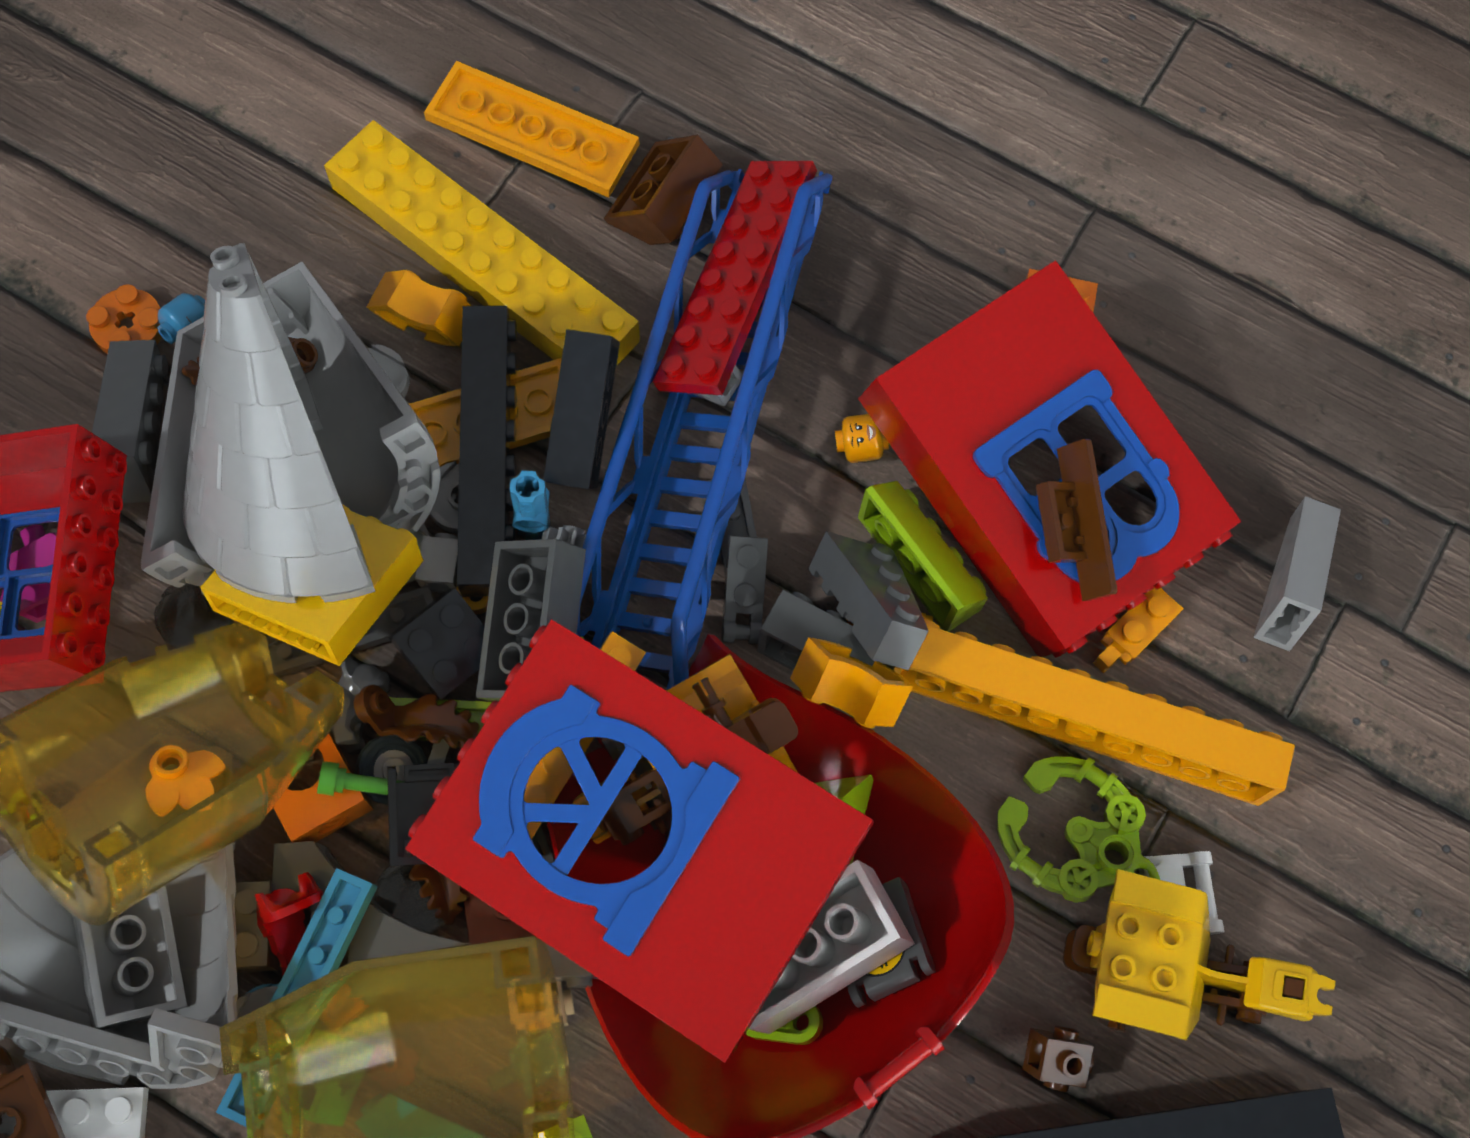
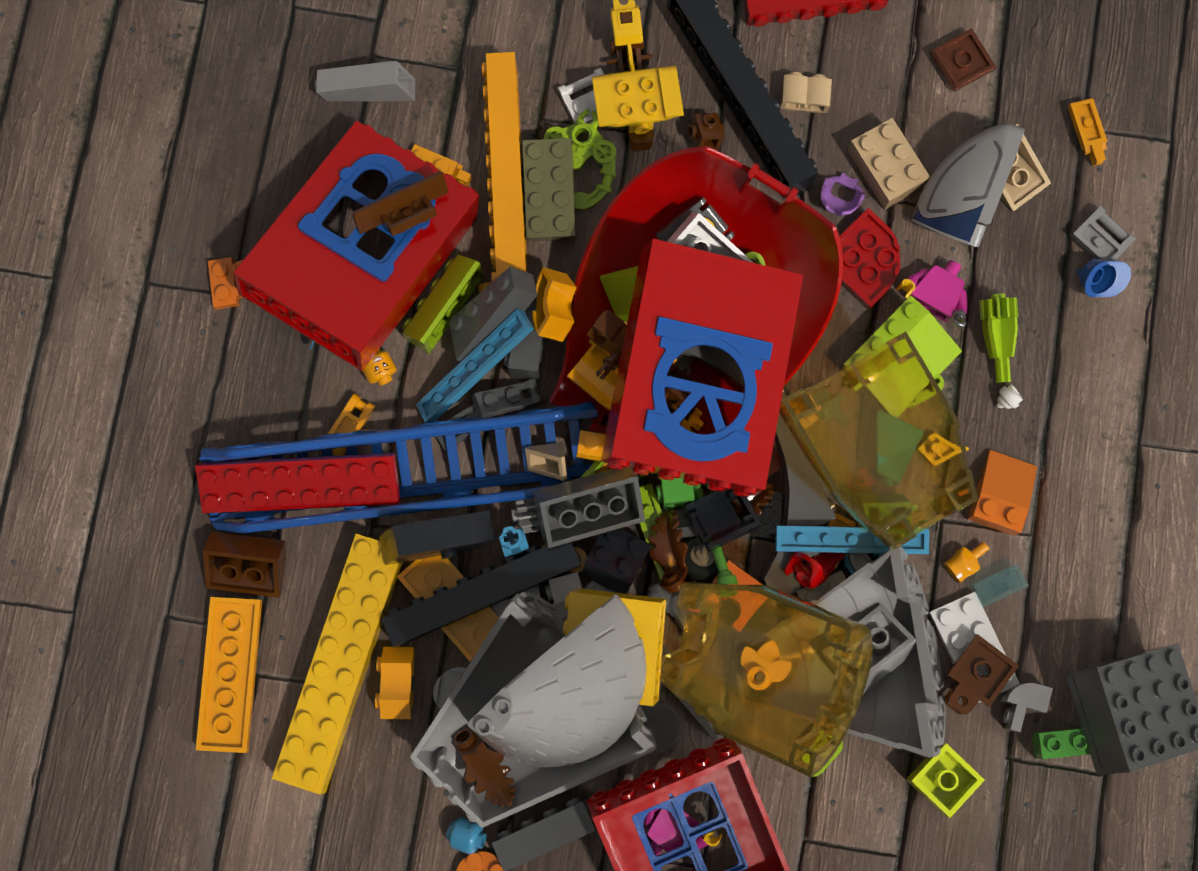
camera: 105 degrees left, 10 degrees up
(628, 608) = (547, 460): none -> tan slope
(796, 374) = (348, 422): none -> light orange plate
(807, 554) = (475, 366): none -> dark azure plate
(1042, 767) = (549, 189): none -> olive brick

